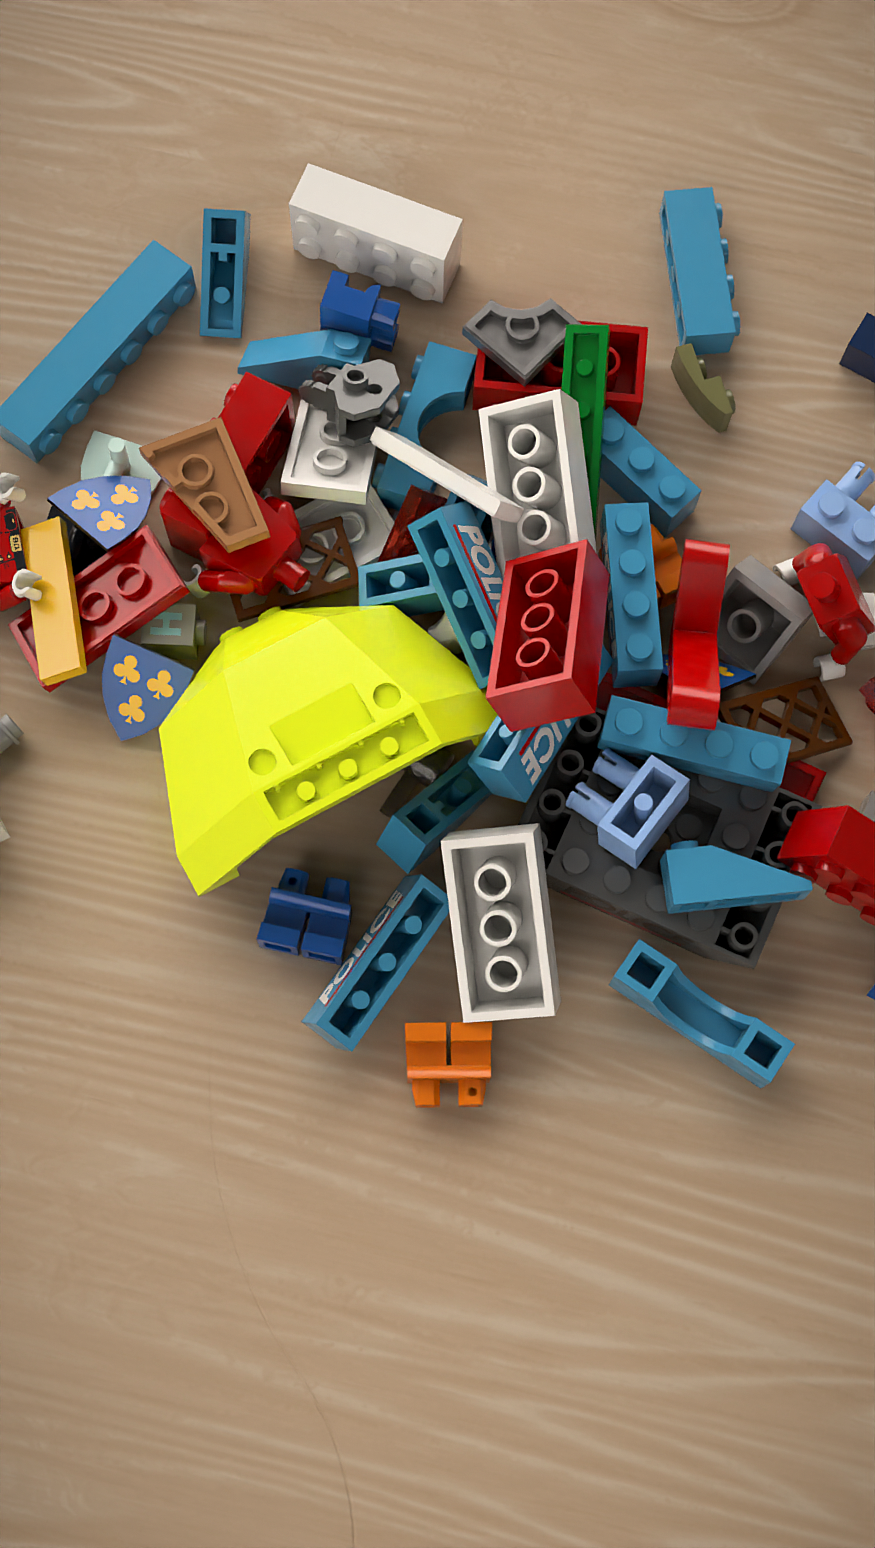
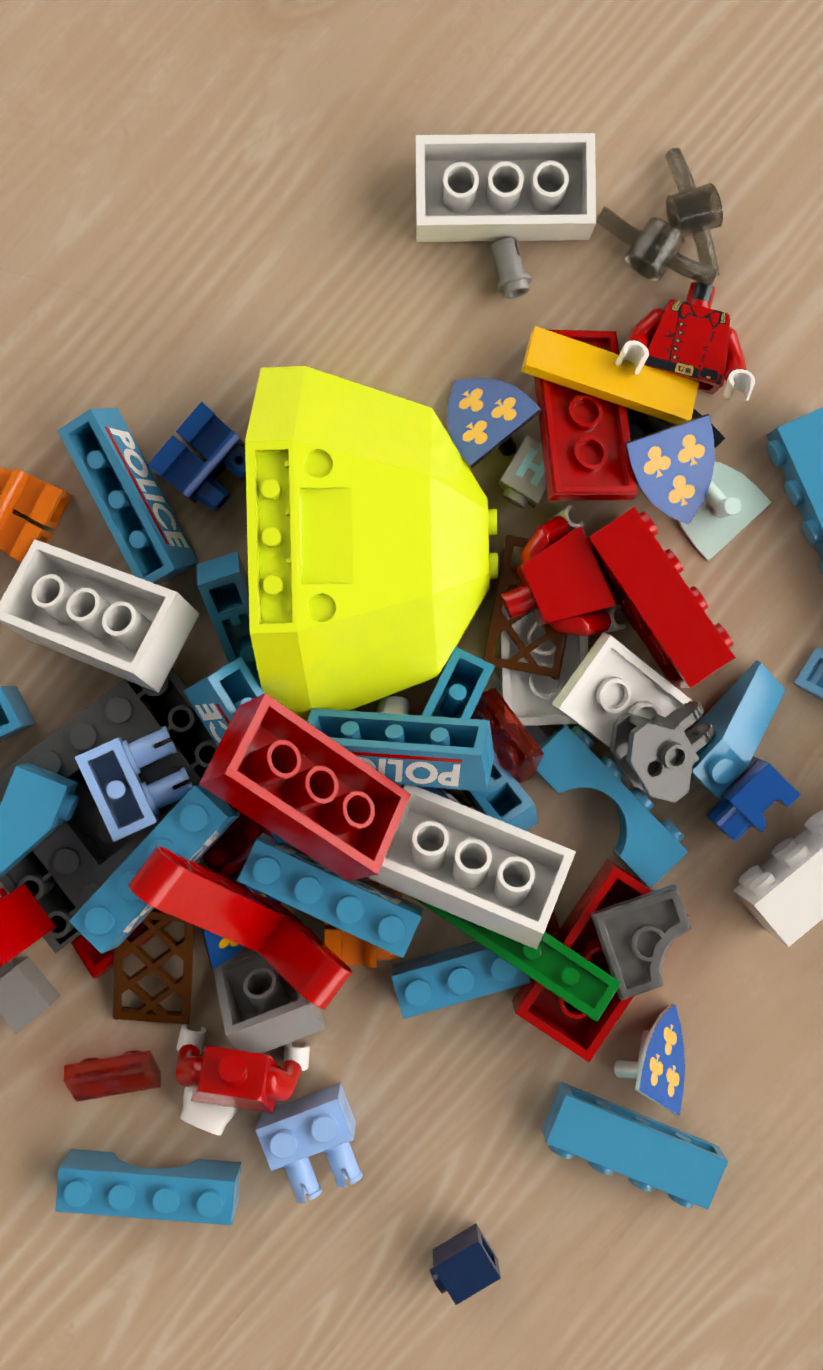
camera: 120 degrees right, 15 degrees up
(210, 482) = (633, 565): medium nougat wing -> none
(446, 475) = (528, 787): white tile -> none
(617, 286) = (660, 1062): none -> shield
(705, 395) = (497, 1081): olive slope -> none

